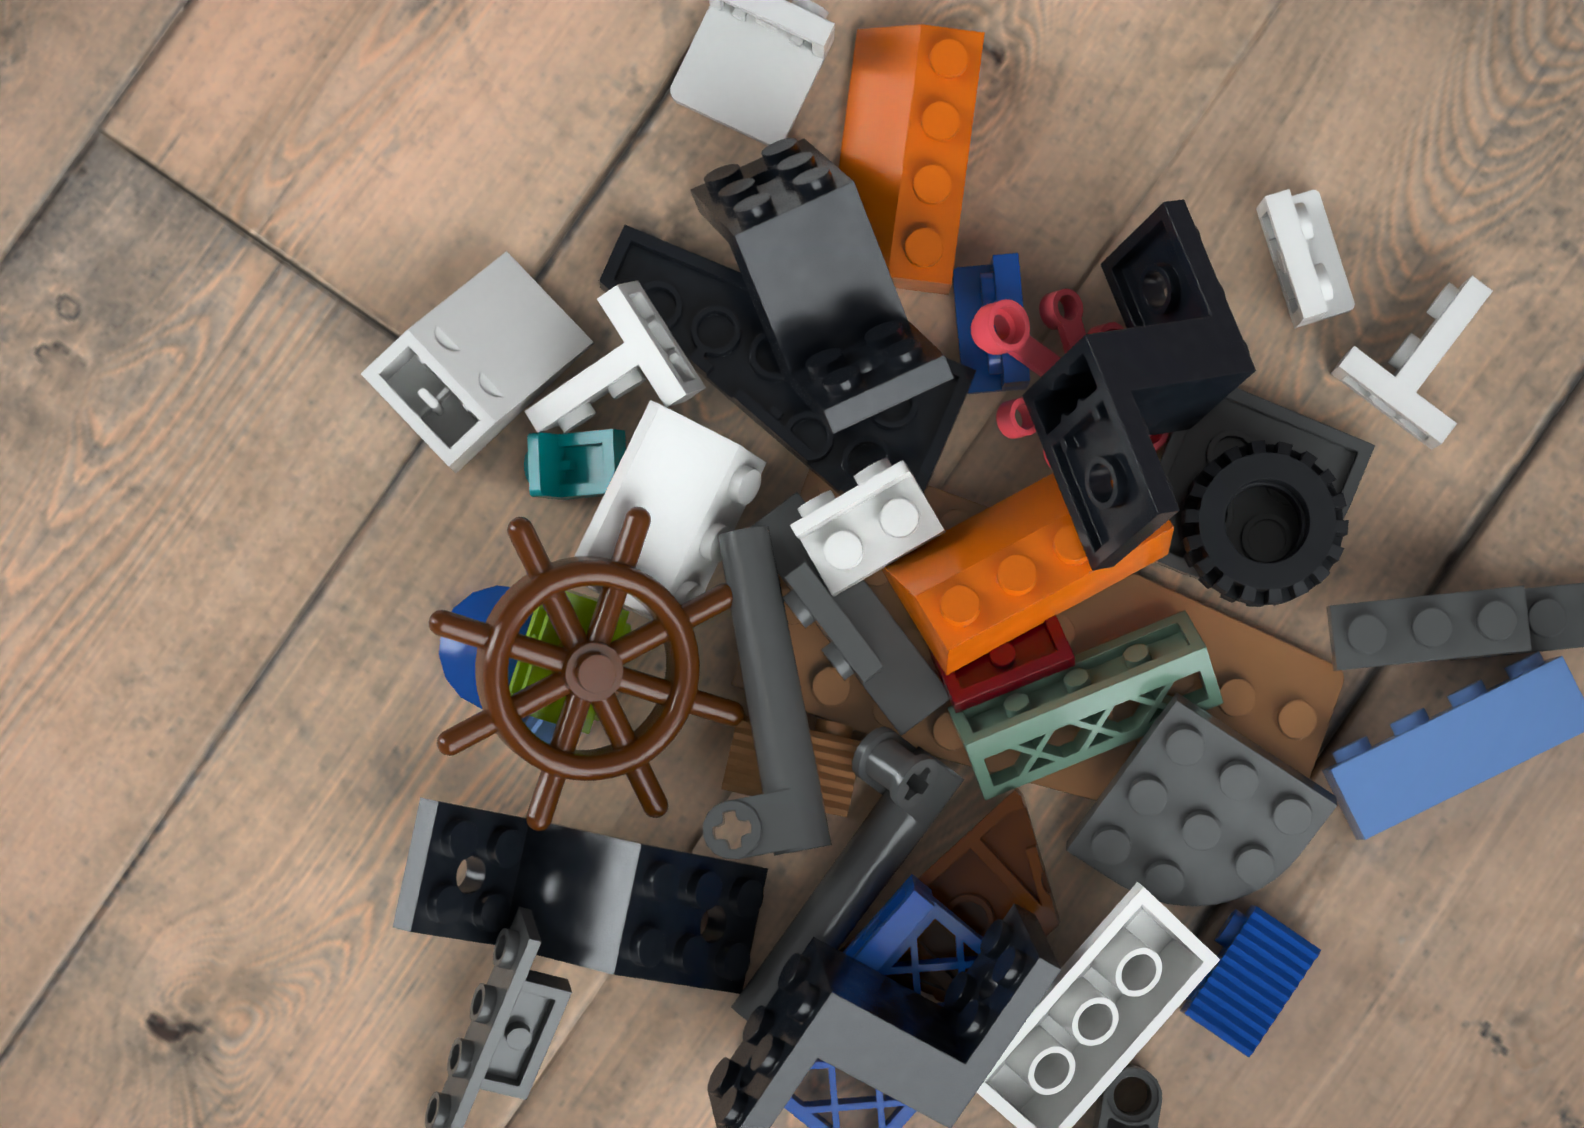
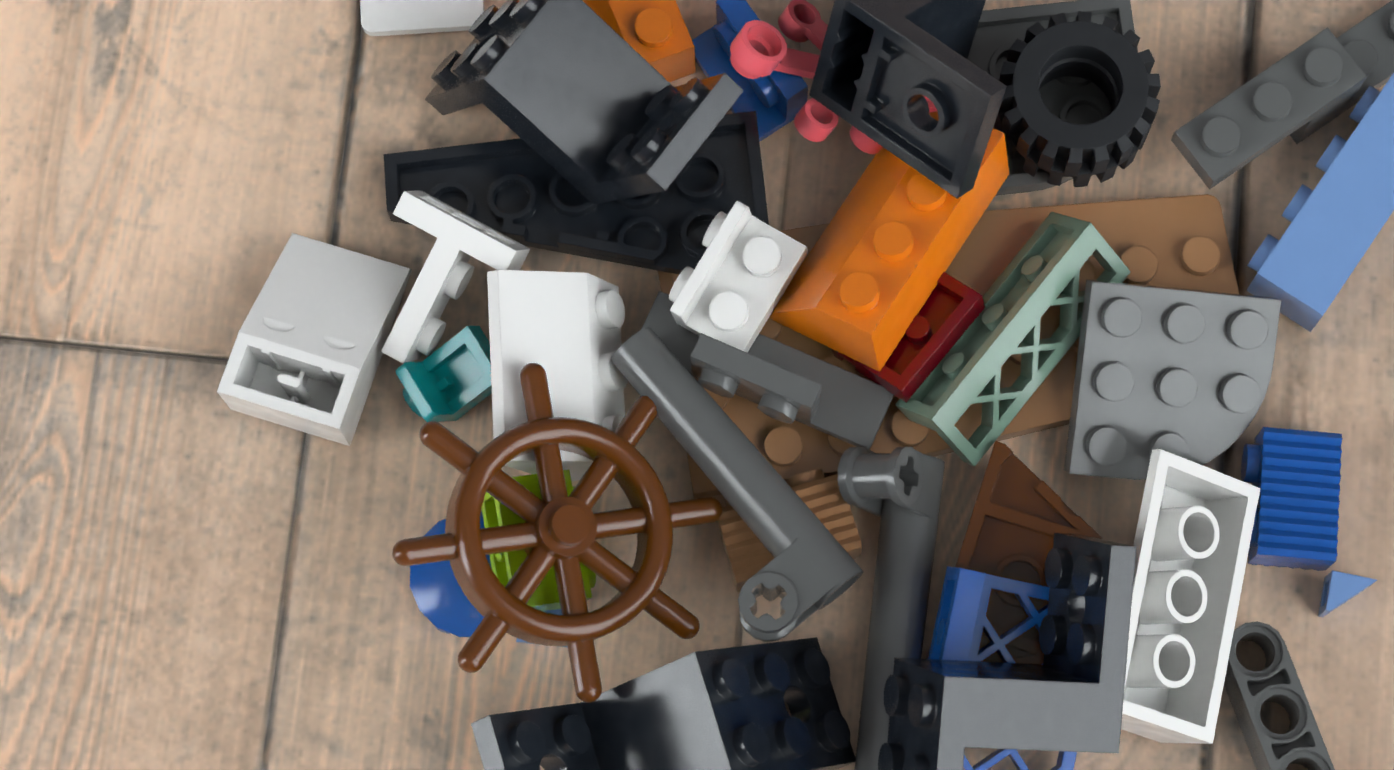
camera: 30 degrees left, 10 degrees down
(1243, 1080) = (1340, 588): none -> medium blue piece

